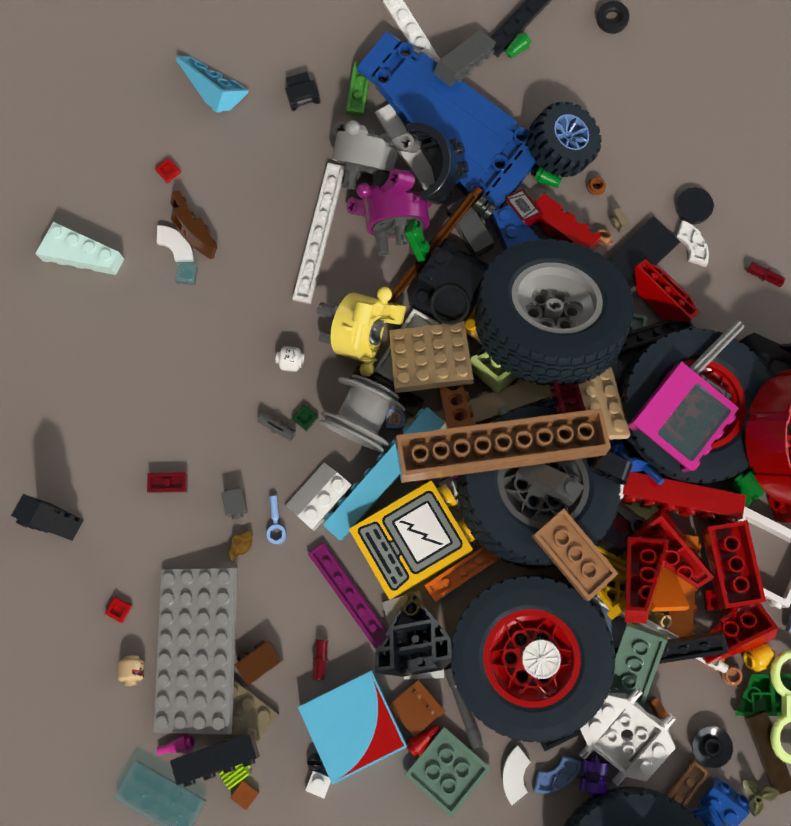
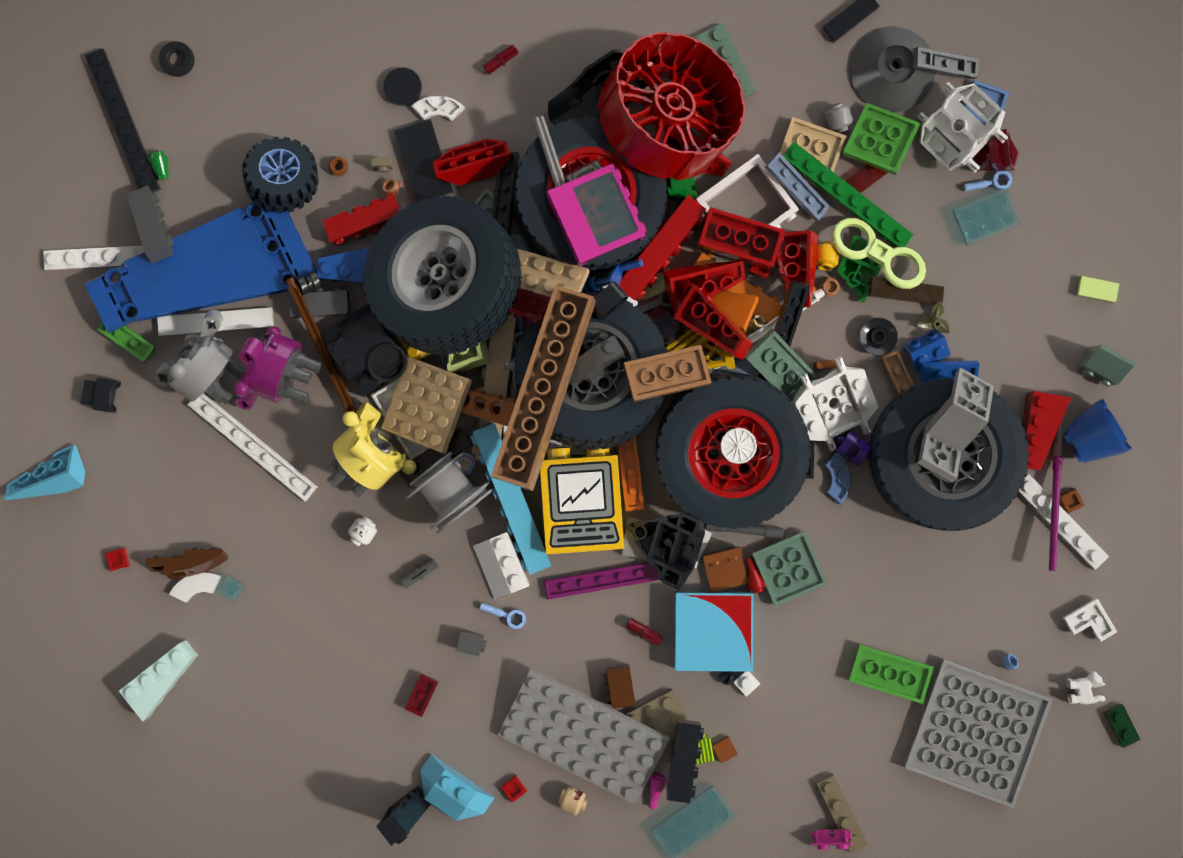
camera: 70 degrees left, 10 degrees up
(91, 554) = (452, 791): none -> medium azure wedge
(240, 545) = (510, 655): pearl gold piece -> none
(305, 417) = (423, 543): dark green tile -> none
(416, 239) = (312, 362): green plate -> none
(445, 159) = (246, 296): black piece -> none
(513, 775) = (819, 514): white tile -> none
(524, 207) = (327, 246): slope -> none
(547, 178) = (308, 209): green cone -> none

